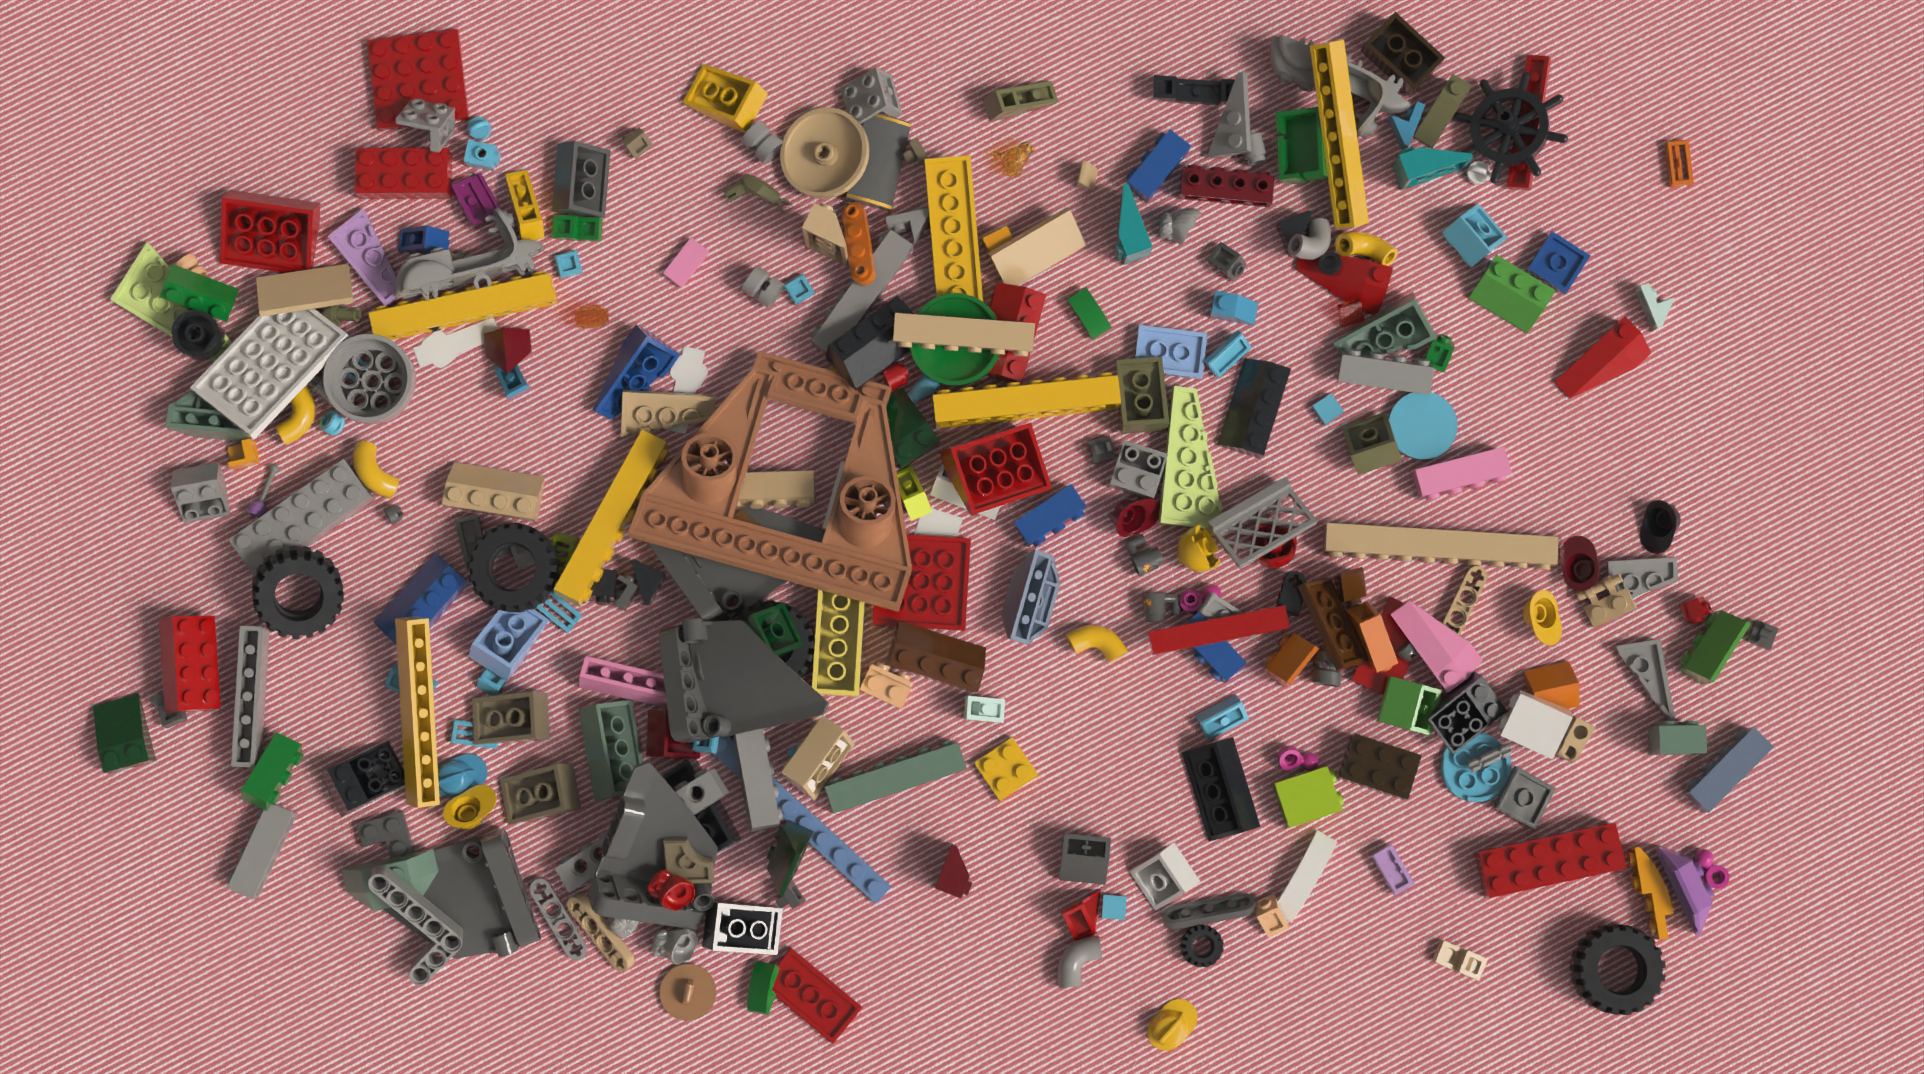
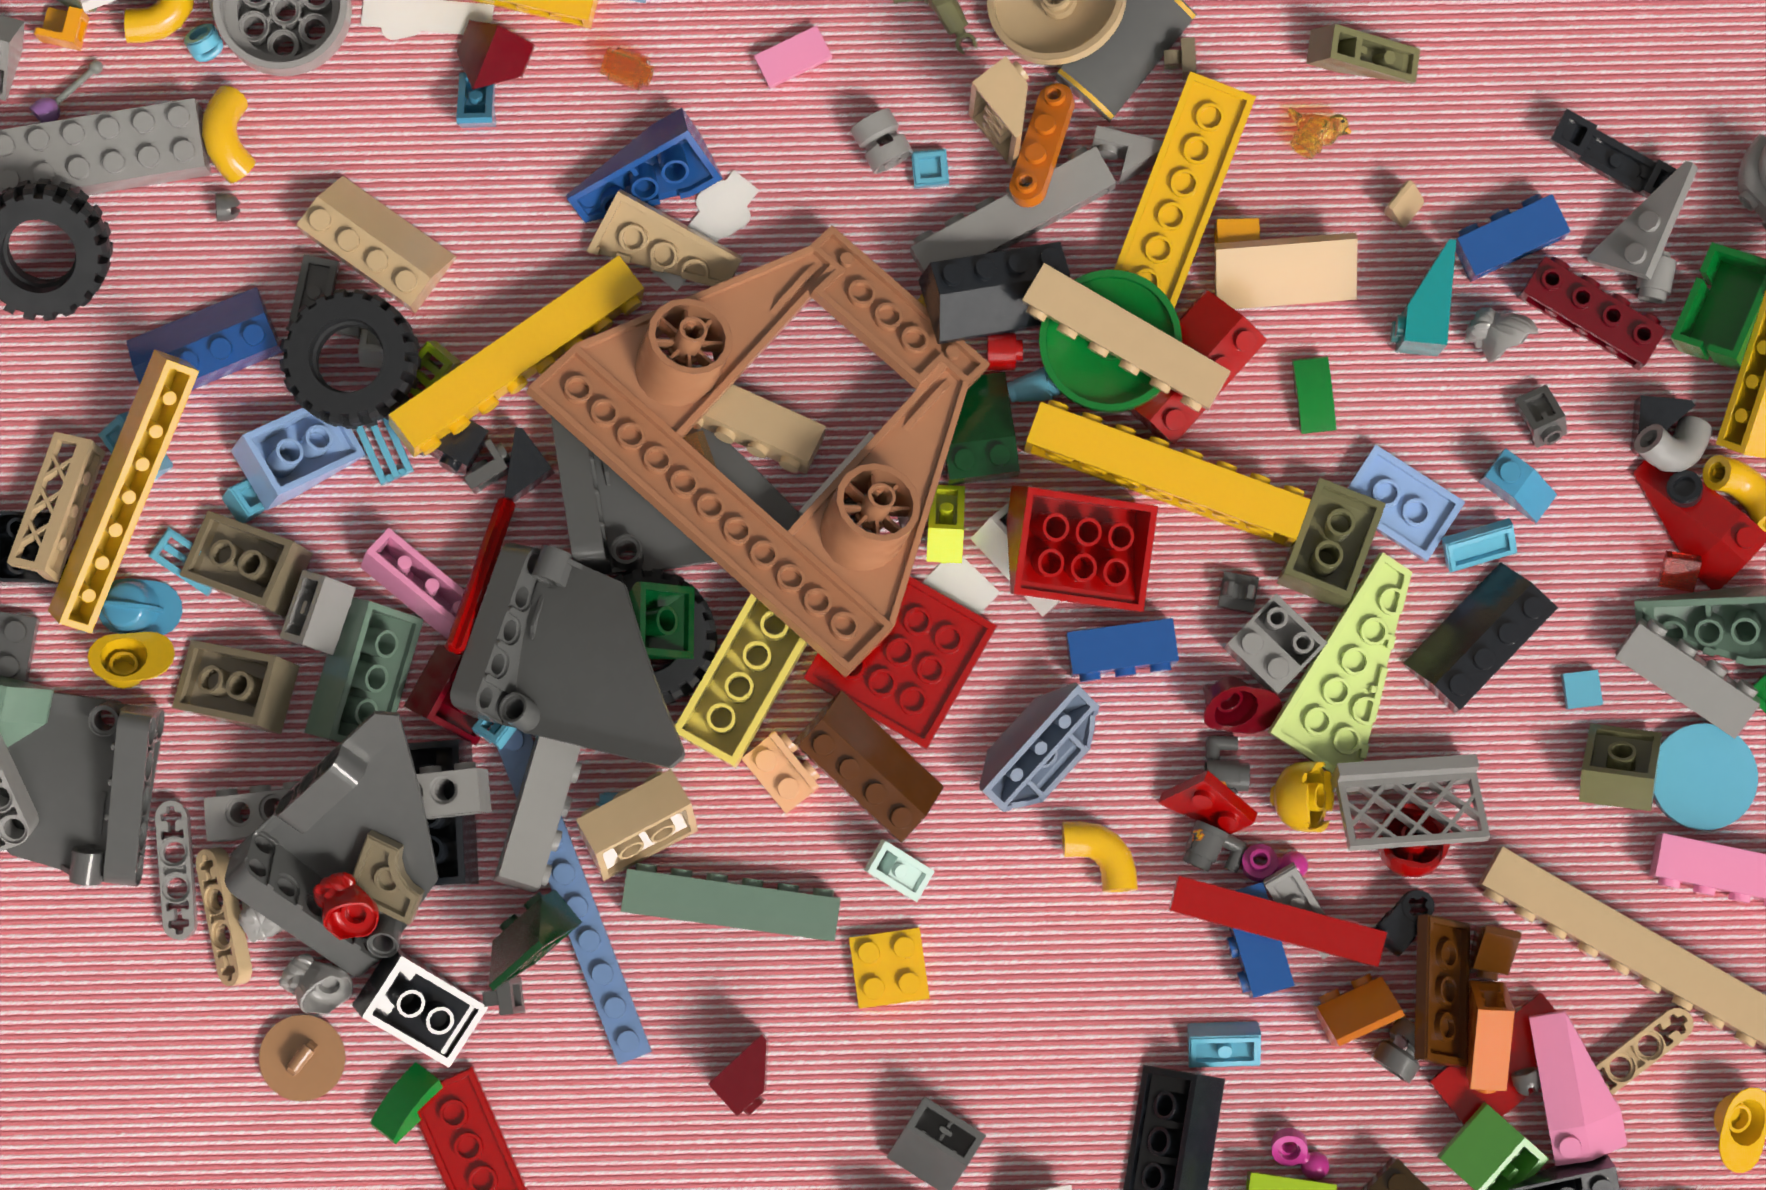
camera: 30 degrees right, 0 degrees up
(389, 738) = (68, 508): none -> tan fence
(568, 726) = (317, 612): none -> light grey slope
(653, 657) = (480, 576): none -> red axle
(1145, 580) = (1209, 801): none -> red wing

